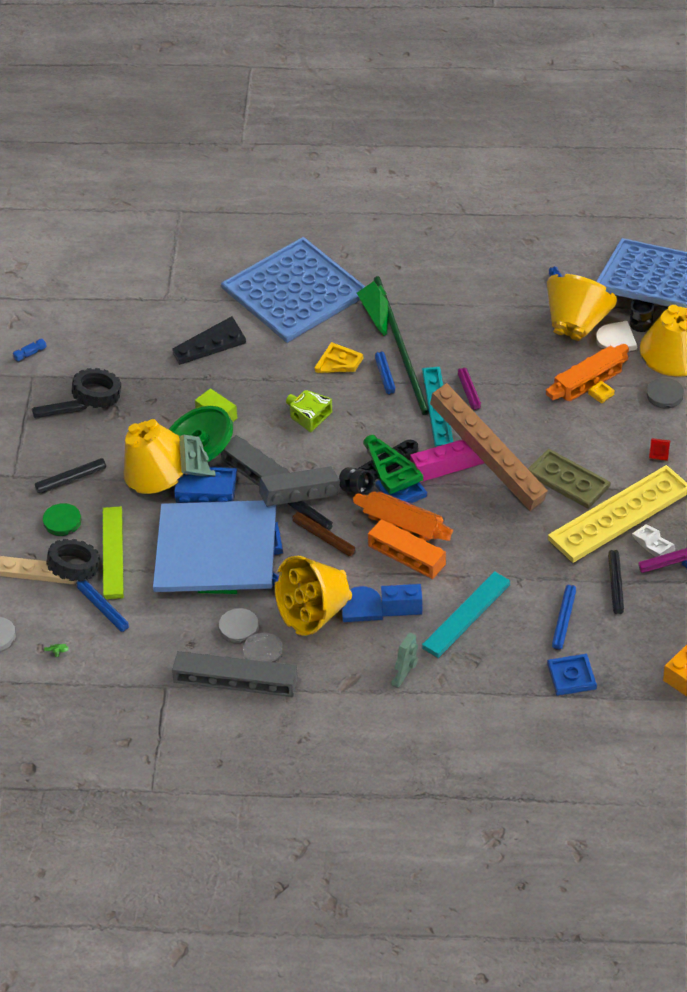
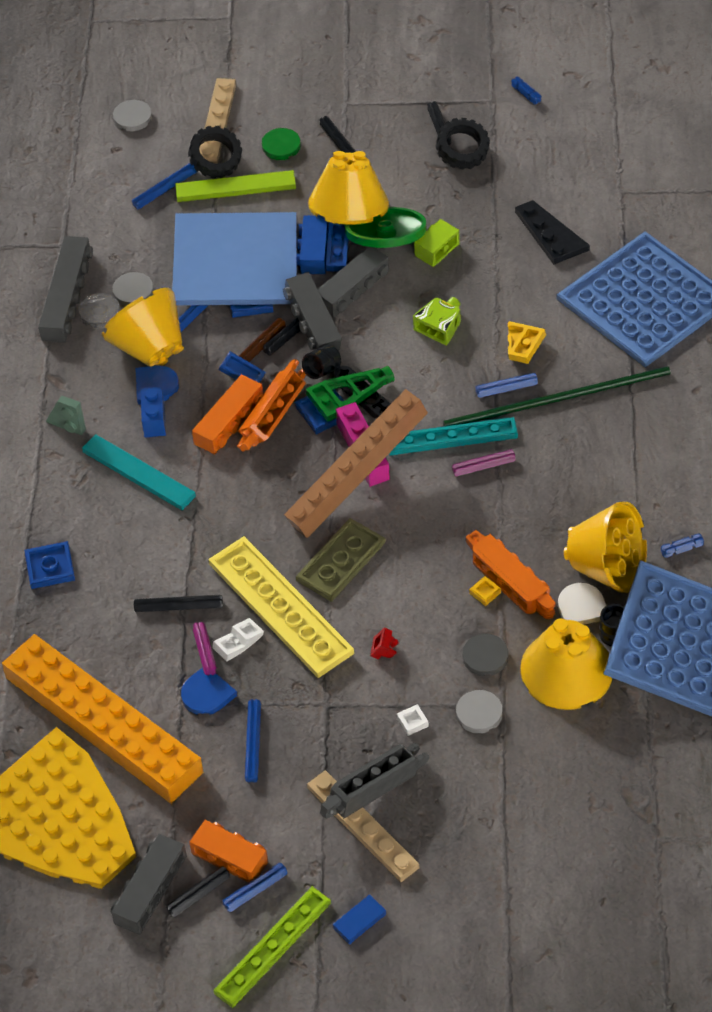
camera: 90 degrees right, 5 degrees up
(56, 648) = (109, 158): bright green plant -> none
(194, 457) = (336, 217): sand green wing -> none
(355, 539) = (235, 366): none -> blue tile
(376, 305) = (607, 366): green slope -> none
(564, 616) = (129, 556): blue axle -> none

